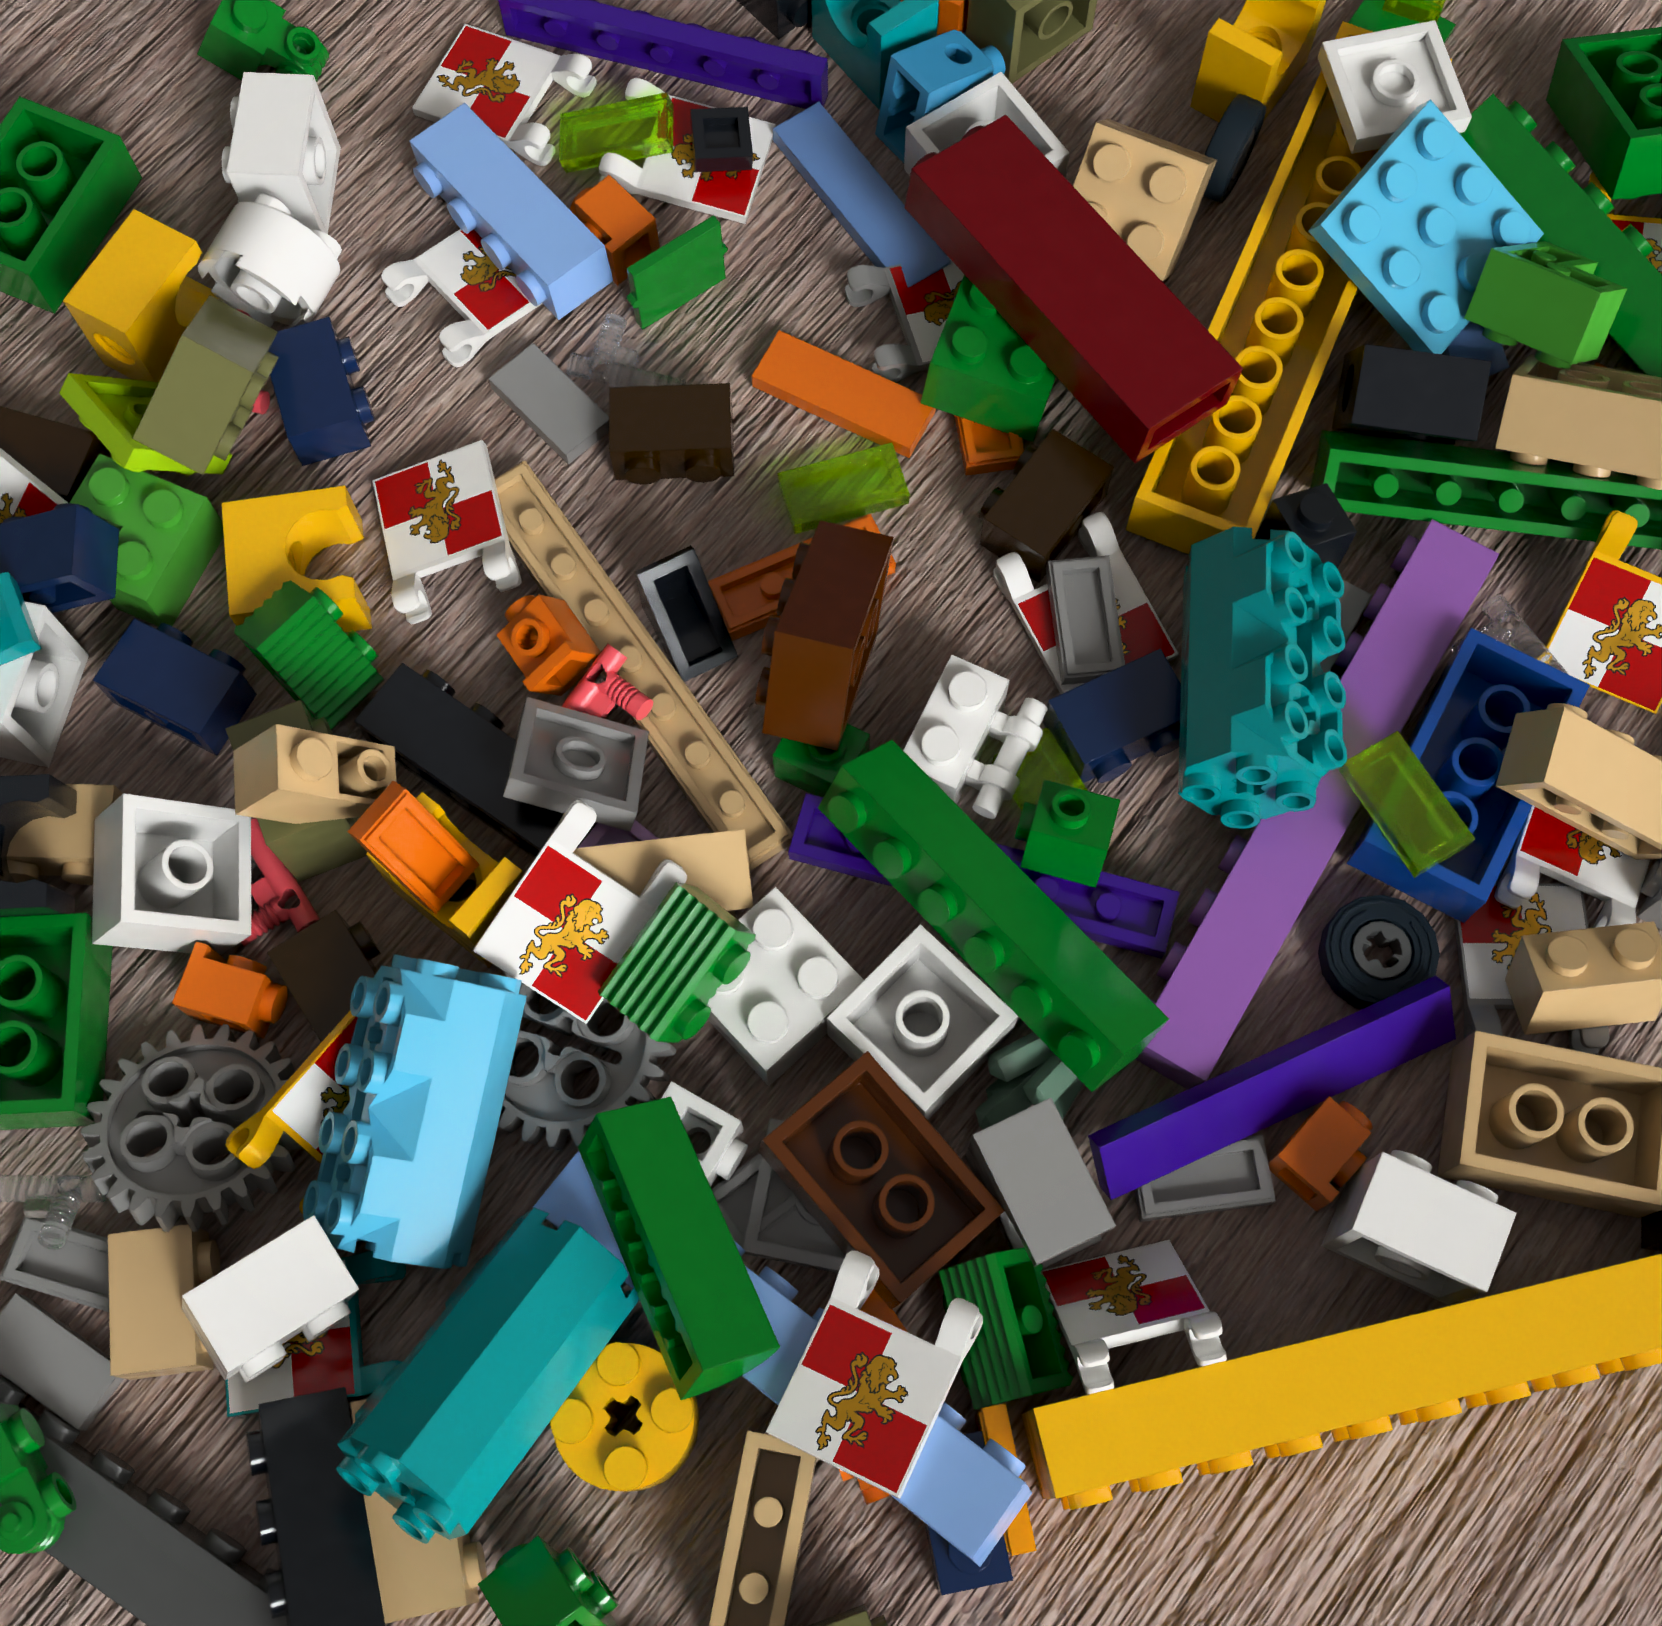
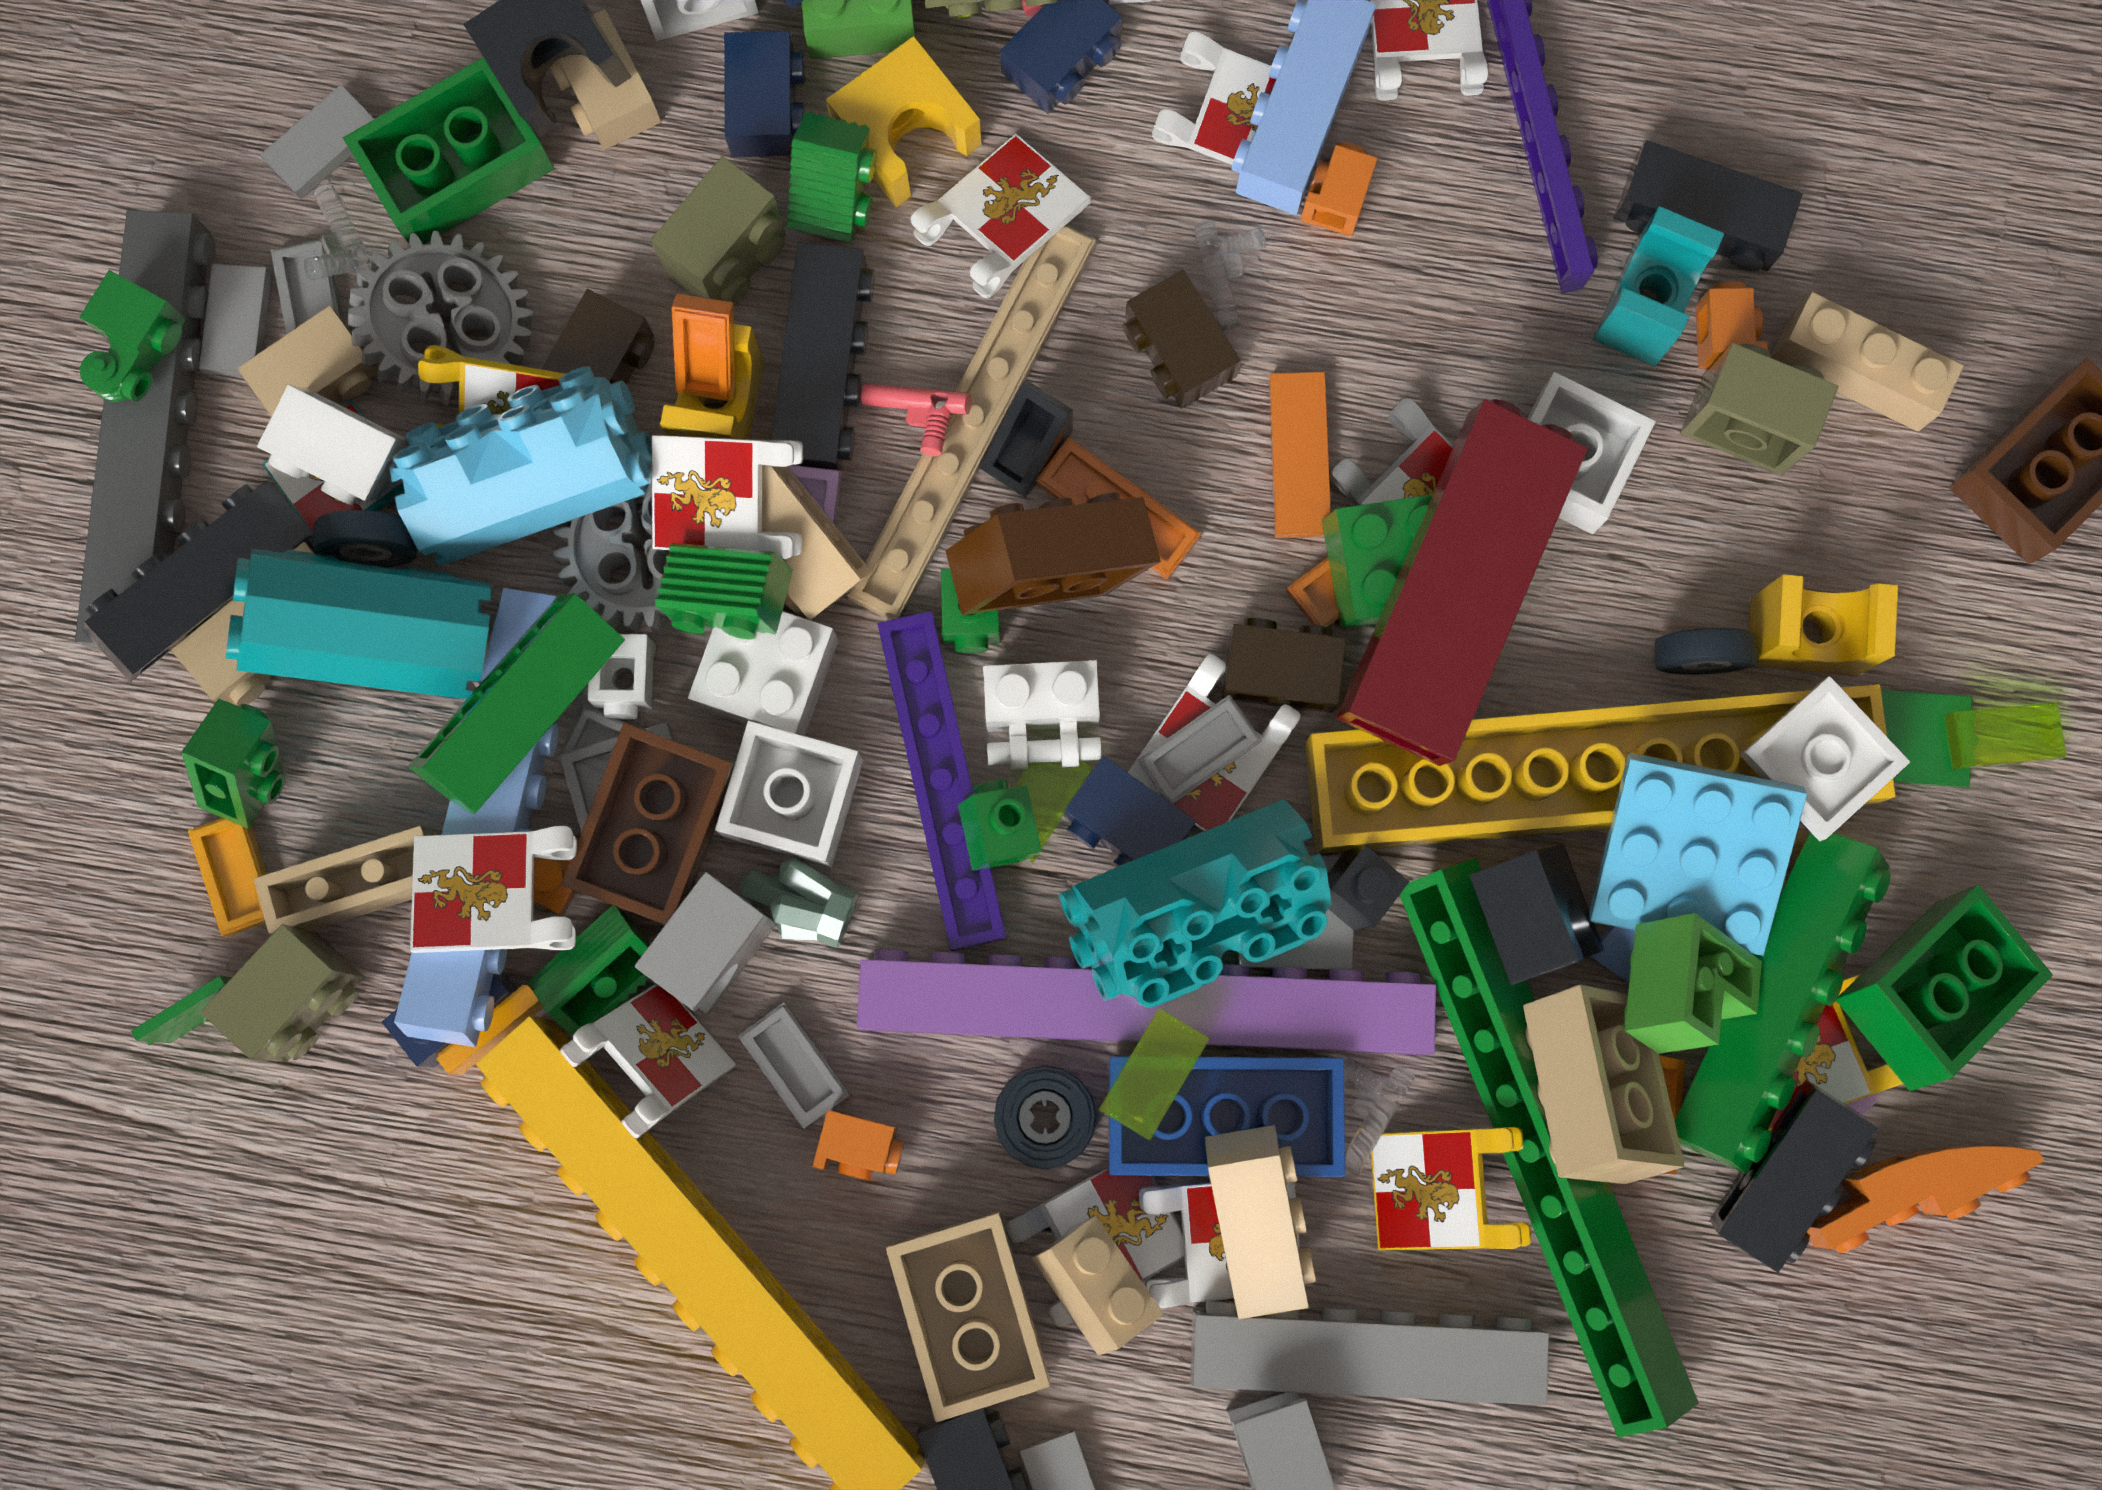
camera: 60 degrees right, 10 degrees up
(171, 875) = (604, 185): white brick -> none
(229, 992) = (550, 278): orange brick -> none
(274, 891) = (642, 264): coral hose -> none
(309, 775) = (710, 243): tan slope -> none
(392, 1322) = (364, 538): none -> black bush
(547, 643) = (945, 347): orange brick -> none
(550, 403) = (1159, 228): light grey tile -> none
(577, 757) = (851, 426): light grey tile -> none
(628, 128) = (1432, 139): clear neon green tile -> none
(628, 1459) = (364, 734): yellow brick -> none
(673, 175) = (1454, 219): flag -> none
(677, 272) = (1321, 262): green piece -> none
(721, 139) = (1471, 227): black plate -> none
(843, 487) = (1215, 500): clear neon green tile -> none
(857, 194) = (1497, 352): medium blue tile -> none
(929, 77) = (1626, 373): dark azure torso -> none
(992, 914) = (893, 797): green brick -> none
(1144, 190) = (1602, 596): tan brick -> none
(1272, 1087) = (886, 1084): dark purple tile -> none
(1420, 1227) = (826, 1241): white brick -> none

